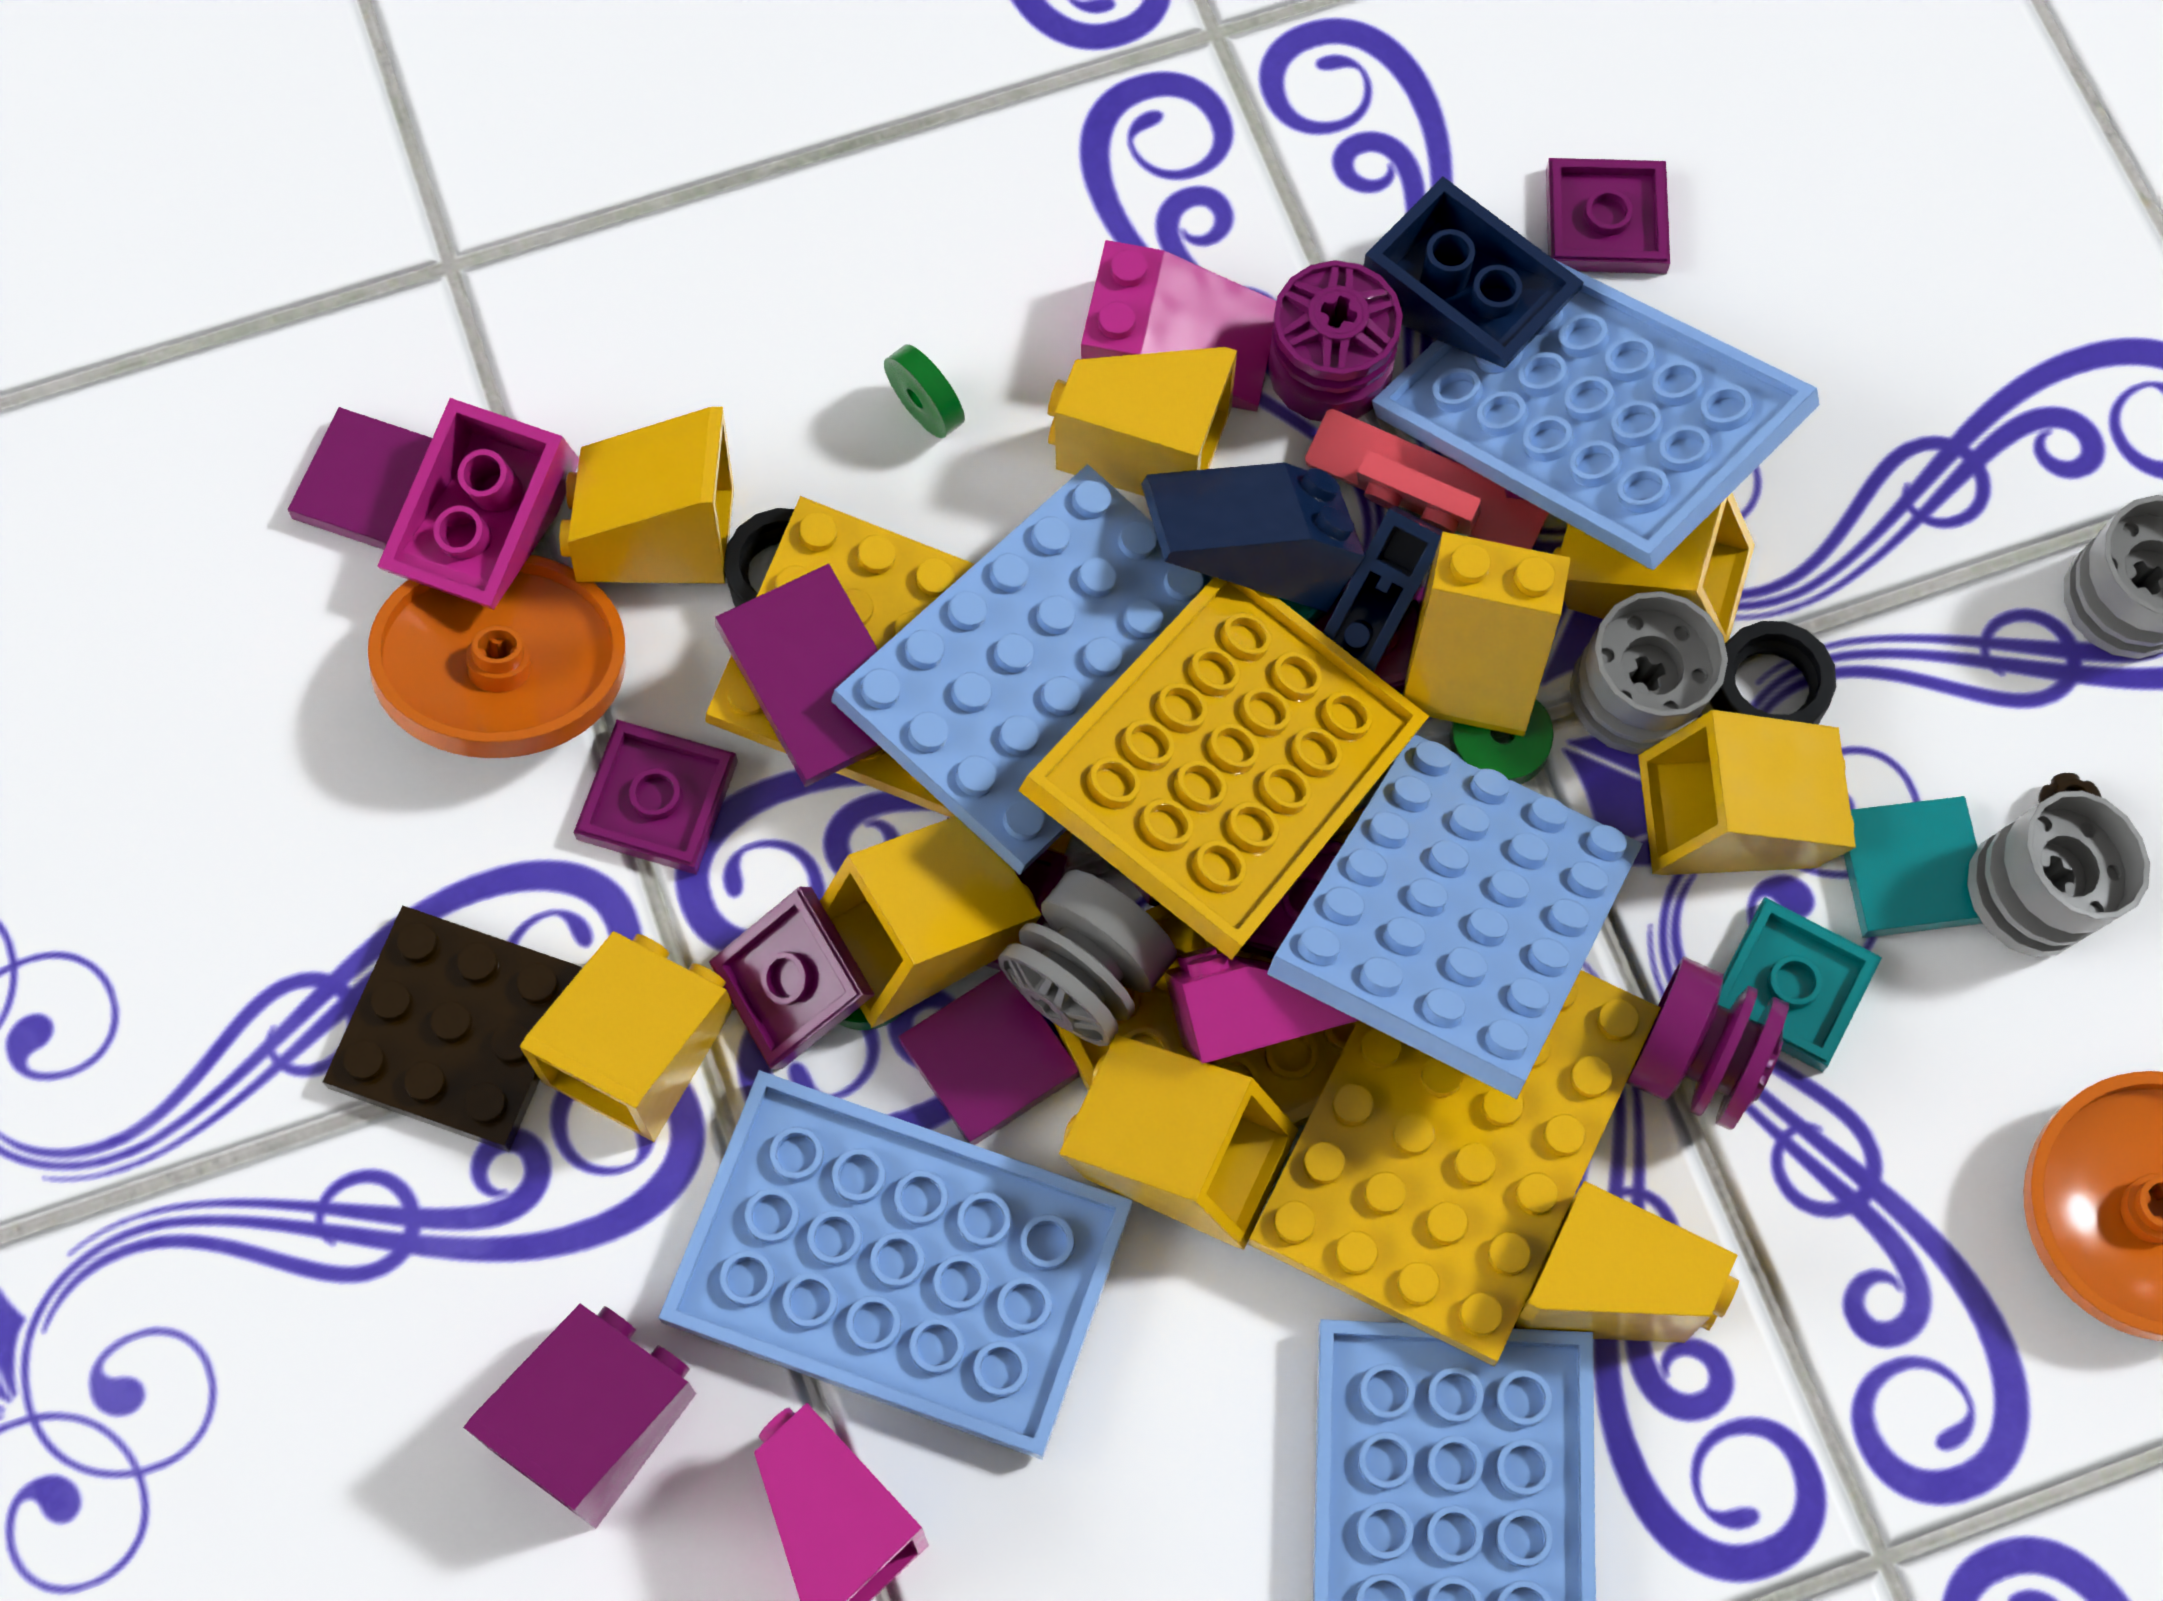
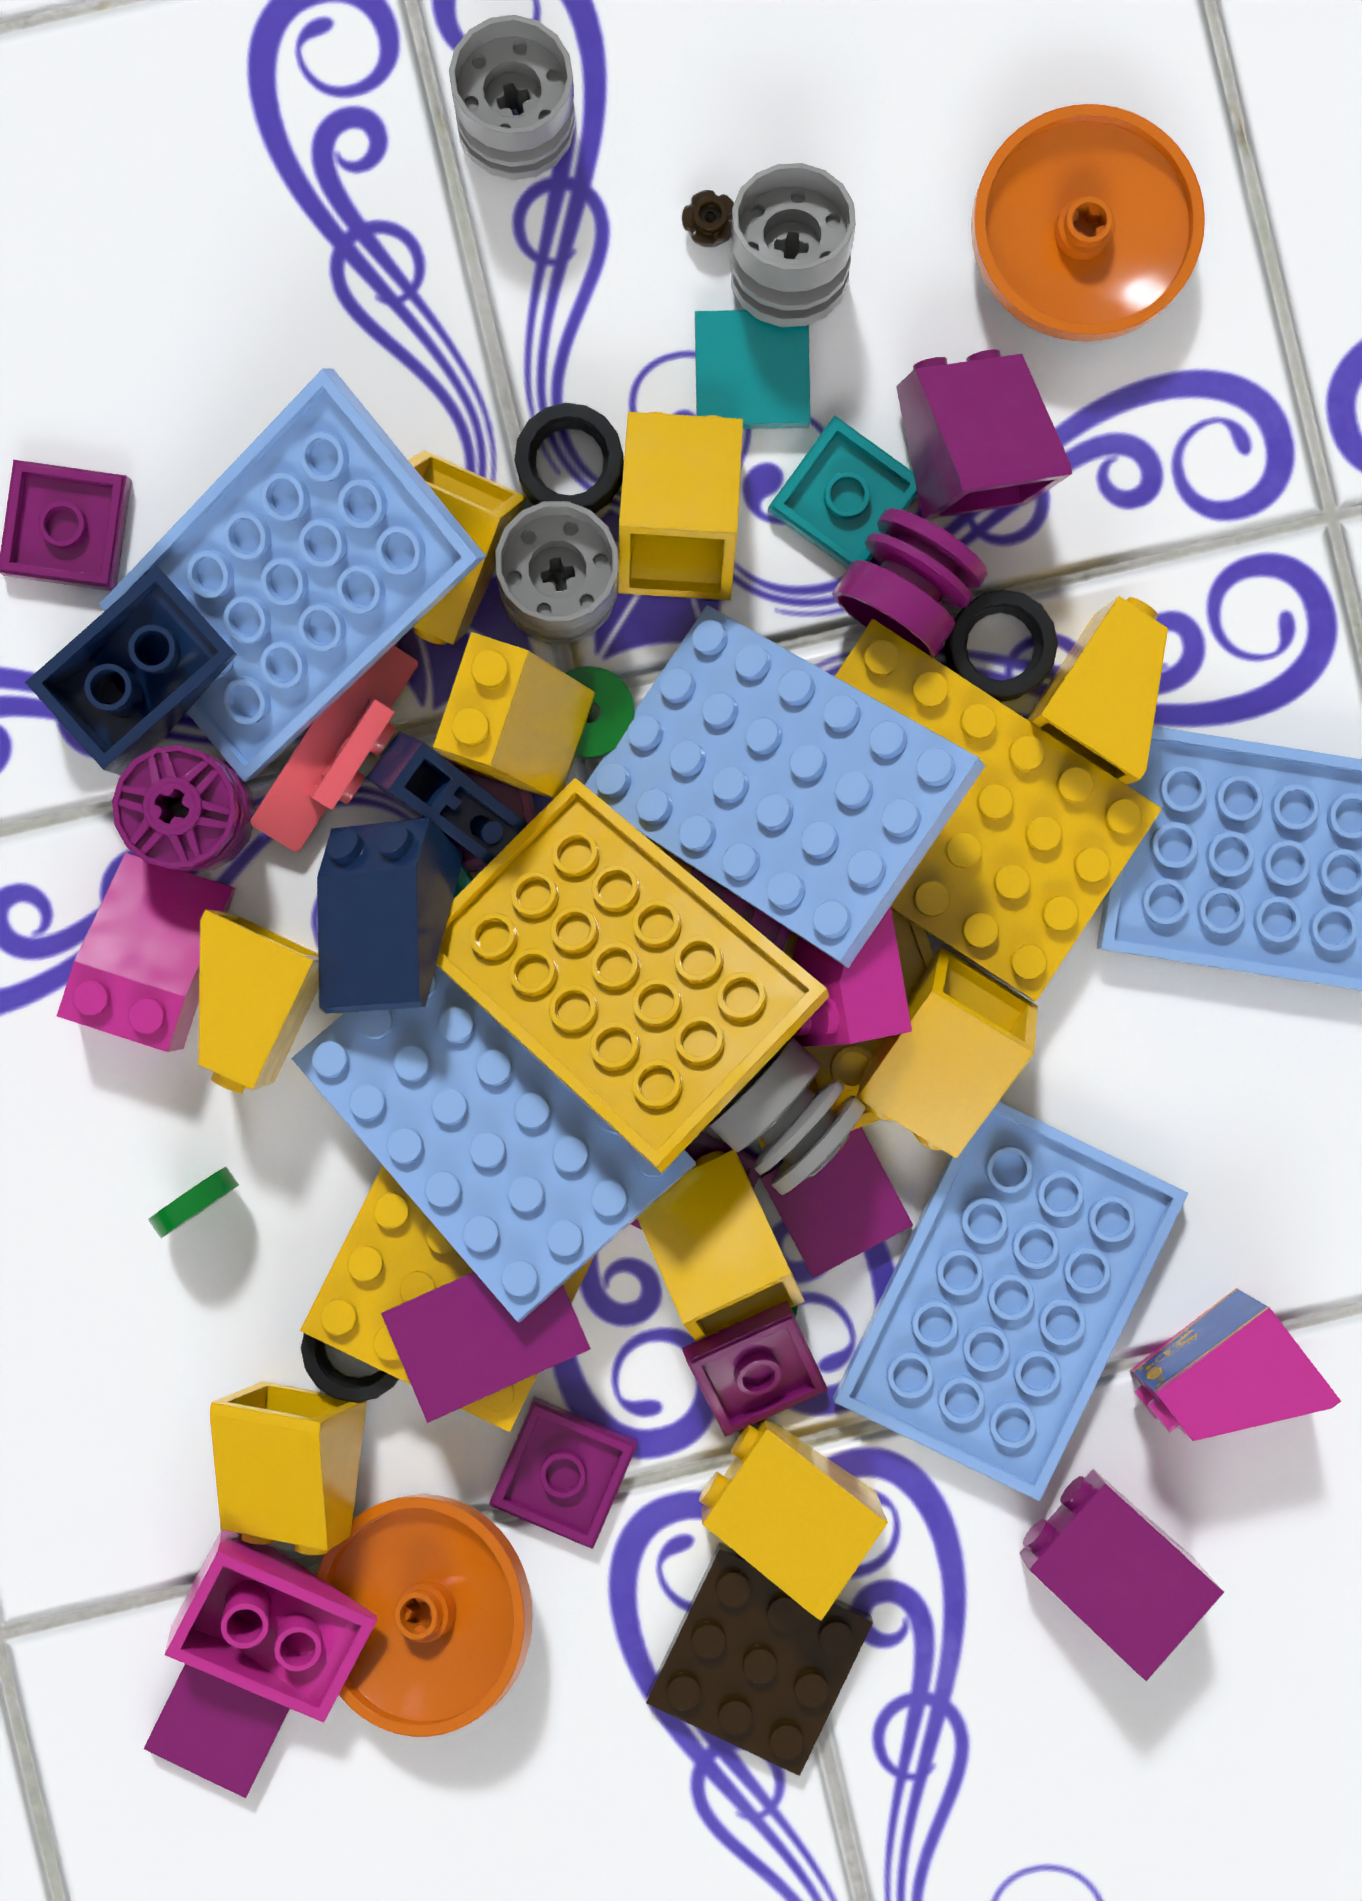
camera: 80 degrees left, 20 degrees up
(1678, 1125) = (1036, 621): none -> black tyre
(1891, 1104) = (978, 434): none -> magenta slope

